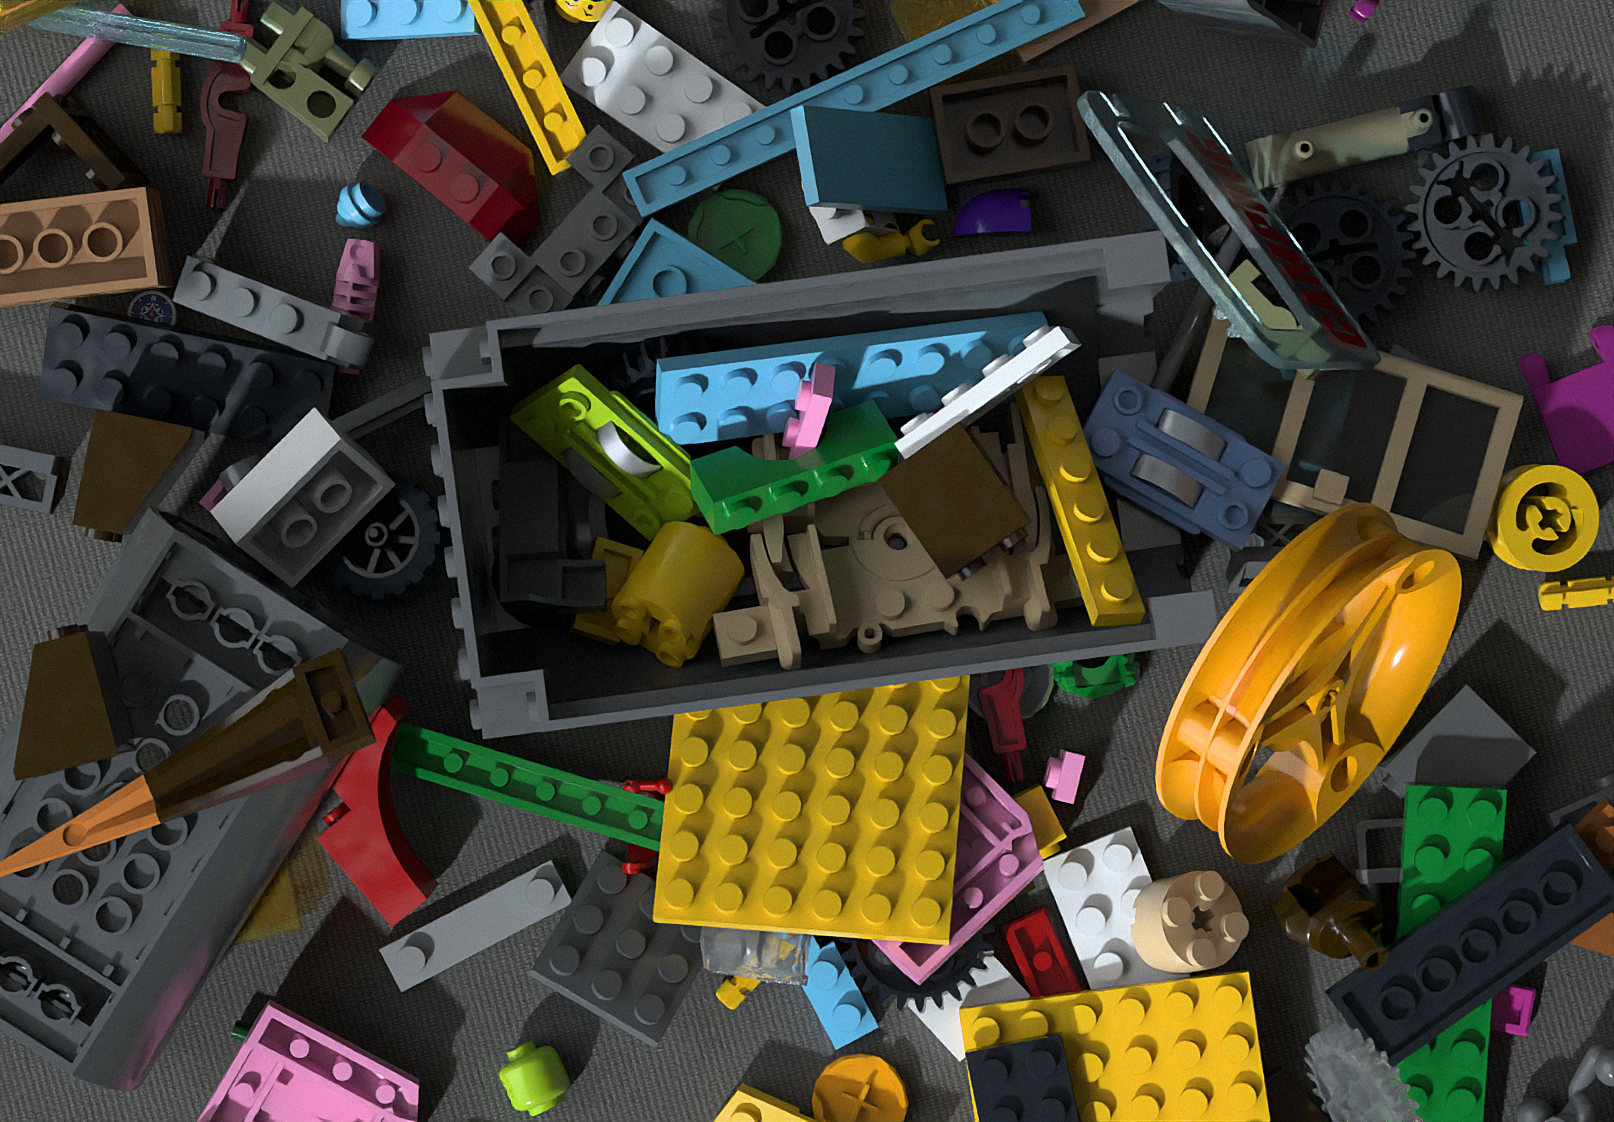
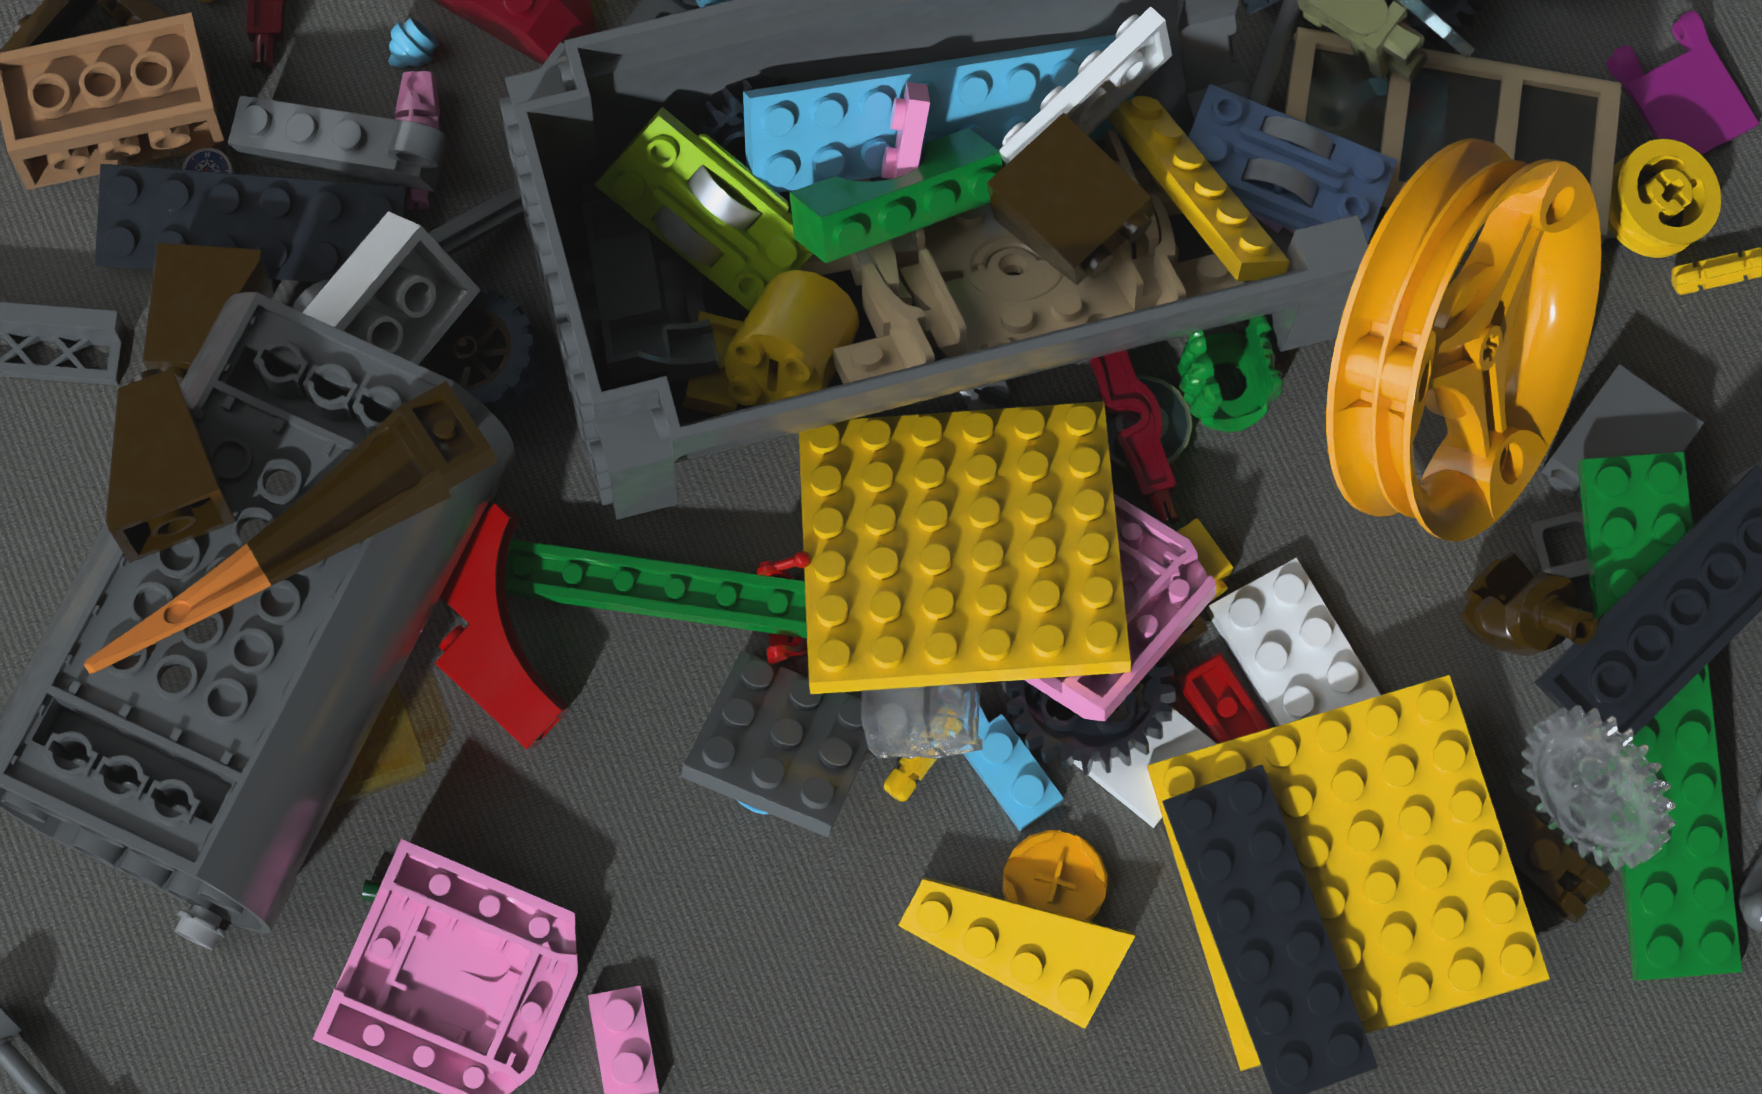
camera: 15 degrees left, 15 degrees down
(476, 925) = (615, 748): light grey plate -> none
(534, 1078) = (699, 898): lime head -> none
(1063, 775) = (1220, 503): bright pink plate -> none
(1188, 922) = (1376, 637): tan brick -> none
(1512, 1009) = (1730, 697): dark pink tile -> none

